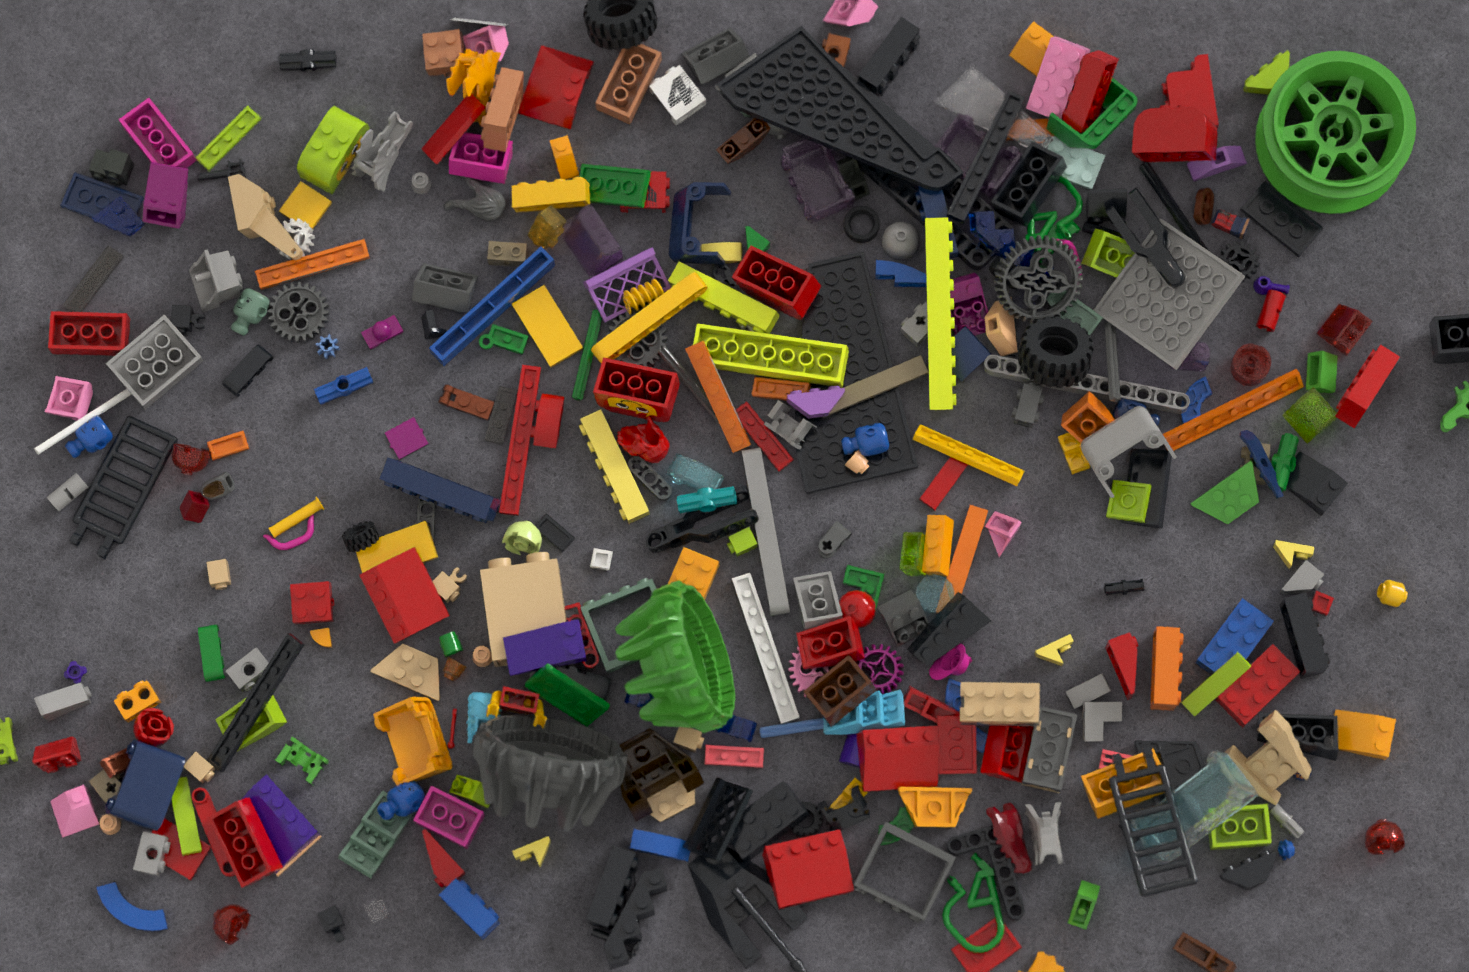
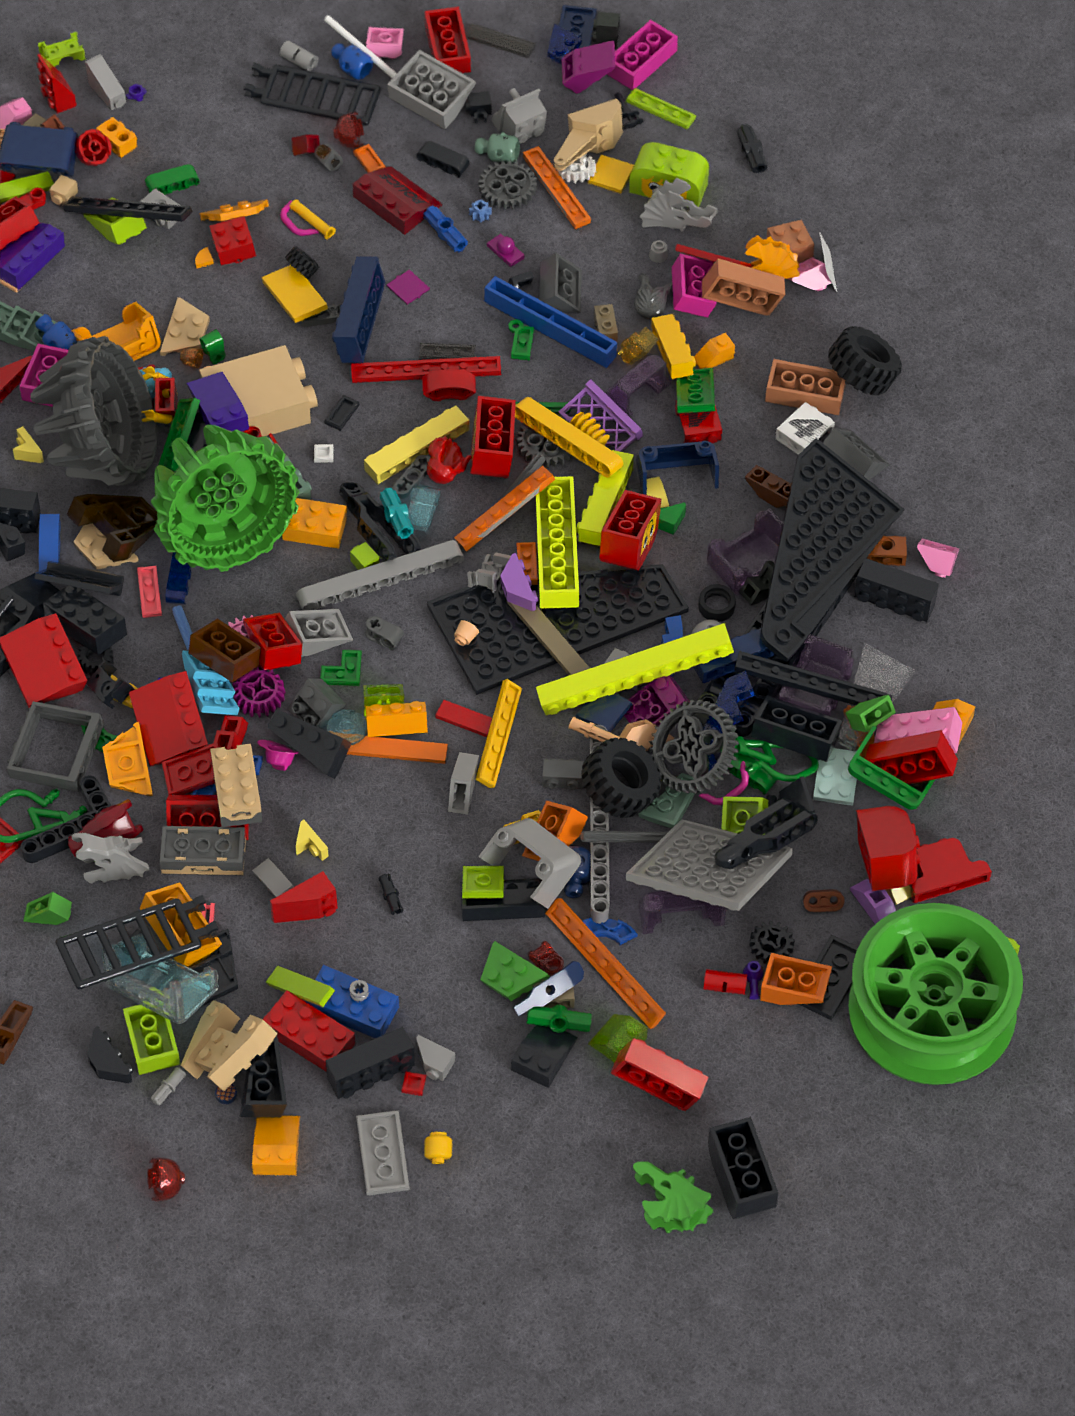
camera: 75 degrees right, 20 degrees down
(219, 574) = (246, 172): tan brick -> none
(273, 593) = (230, 212): none -> light orange wing
(288, 427) = (394, 198): none -> dark red slope
(302, 759) = (89, 259): bright green piece -> none
(404, 595) = (251, 301): red slope -> none
(447, 585) = (270, 337): tan brick -> none
(467, 402) = (453, 323): copper plate -> none
(520, 535) = (331, 383): yellowish green cylinder -> none
(547, 326) = (543, 370): yellow tile -> none
(555, 87) = (786, 336): red slope -> none
(689, 739) = (156, 551): tan brick -> none
(763, 437) = (493, 543): red tile -> none
(765, 648) = (266, 594): white plate -> none
(858, 606) = (316, 661): red cylinder -> none
(868, 440) = (489, 636): blue piece -> none
(994, 369) = (591, 730): none -> light nougat pin
(1002, 530) = (426, 778): bright pink slope -> none
(1018, 497) = (463, 783): none -> light grey slope
(1030, 115) = (870, 713): none -> bright green slope
(1095, 714) = (248, 888): light grey tile -> none
(1165, 668) = (308, 938): orange brick -> none
(1170, 203) = (813, 876): black axle -> none
(1217, 462) = (546, 958): none -> clear red piece
(1231, 223) = (811, 930): leg -> none
(1235, 636) = (359, 984): none -> light grey bush
(1254, 355) = (659, 968): clear red brick -> none
(1286, 849) = (136, 1088): blue plate -> none
(1287, 550) = (462, 1040): light yellow slope -> none
(1288, 249) = (794, 981): none -> orange slope
(1321, 372) = (672, 1041): bright green brick -> none
(1344, 328) = (722, 1056): clear red slope -> none
(1384, 643) = (382, 1152): none -> light grey tile

